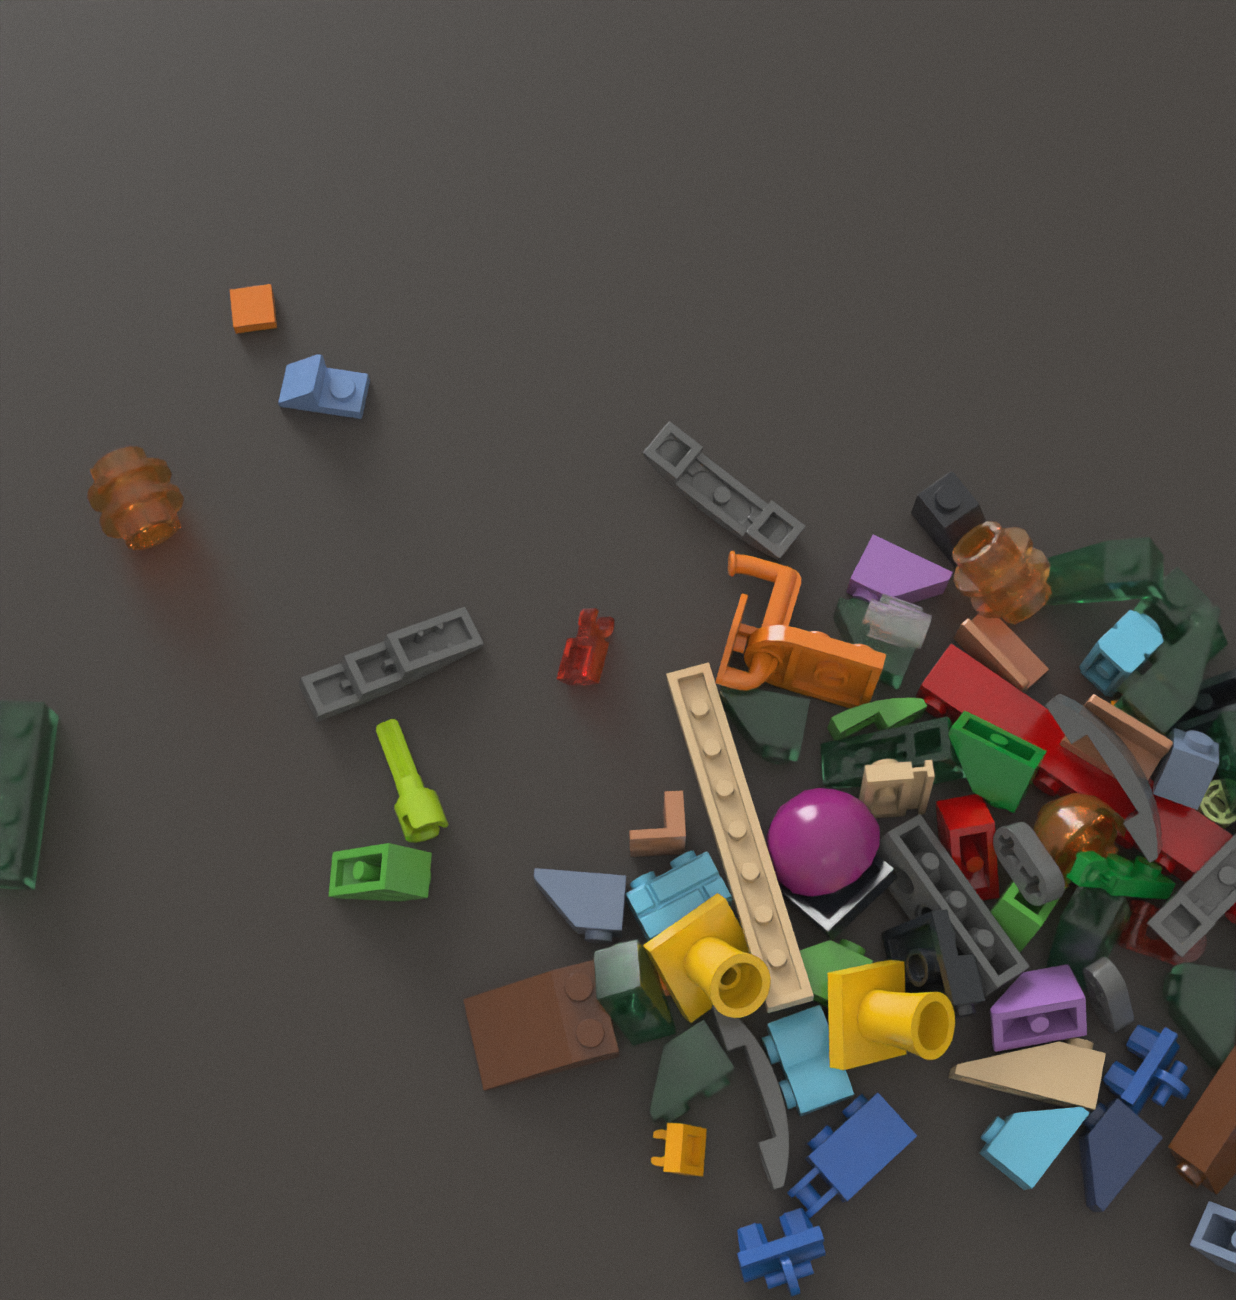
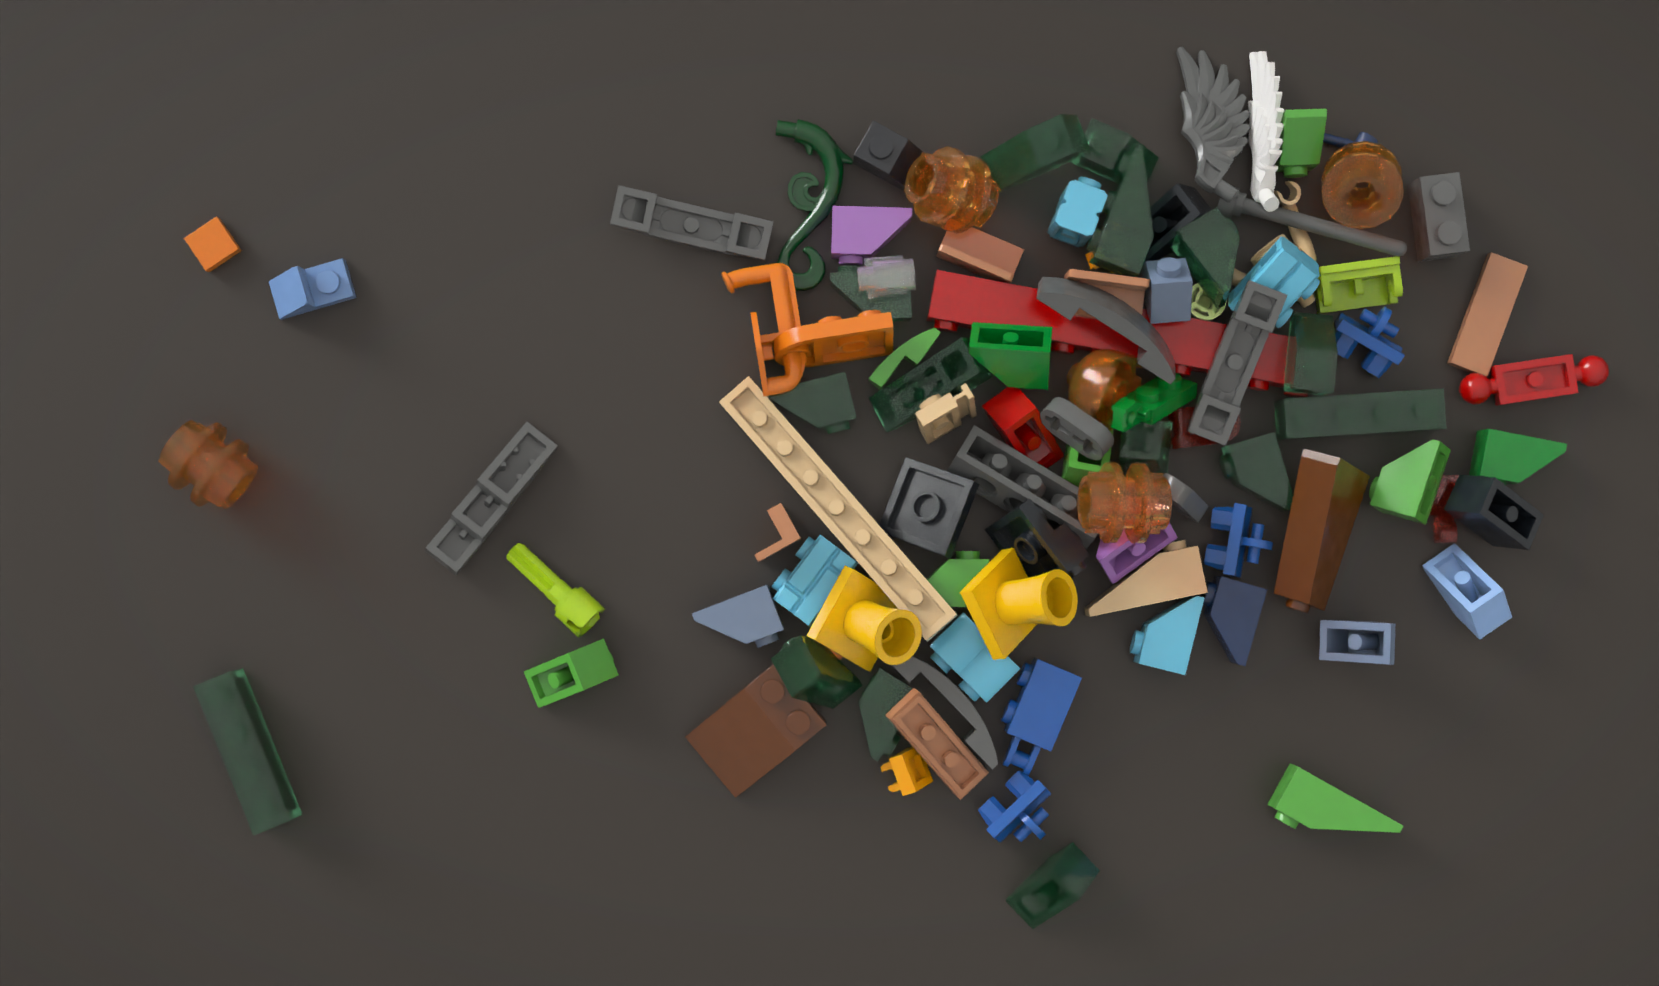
camera: 30 degrees left, 15 degrees up
(586, 654) = (644, 416): clear red plate -> none
(726, 1133) = (937, 743): none -> nougat tile
(822, 841) = (907, 484): magenta cylinder -> none
(855, 536) = (833, 158): none -> dark green plant
(1056, 963) = (1133, 503): none -> clear orange piece

